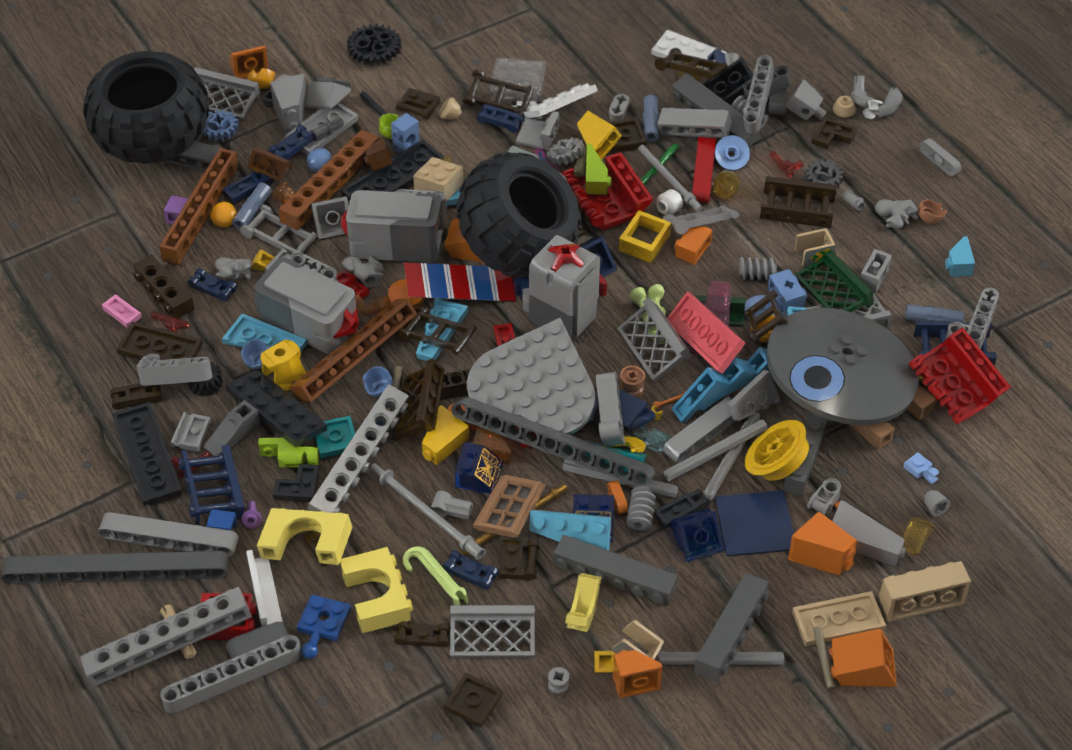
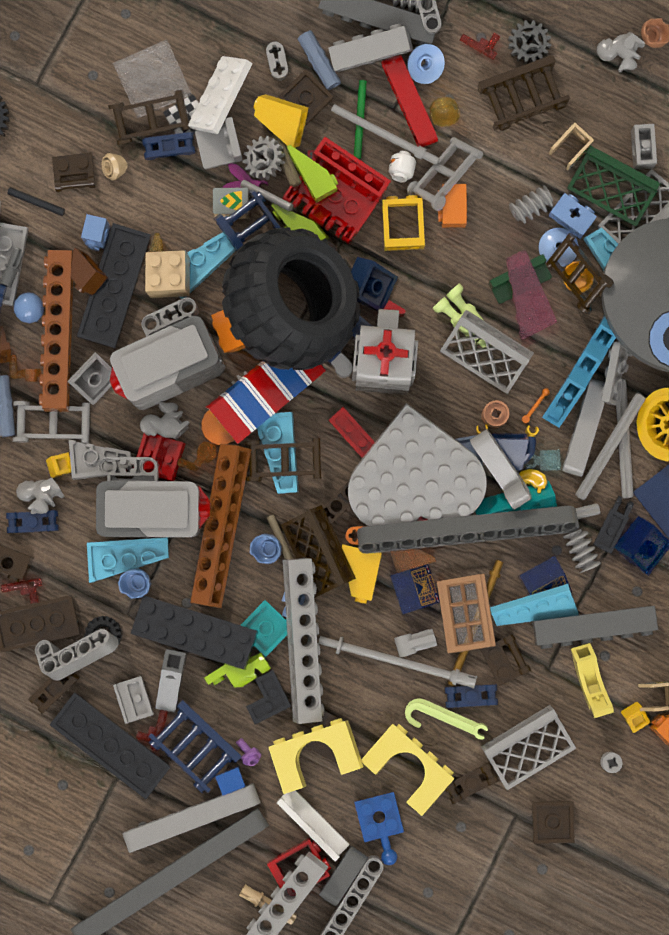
camera: 30 degrees left, 35 degrees up
(284, 362) = (179, 581): yellow piece -> none
(385, 124) = (70, 223): lime hair -> none
(620, 502) = (555, 549): orange beam -> none
(705, 332) = (536, 328): coral plate -> none
(856, 202) = (573, 58): light grey pin -> none

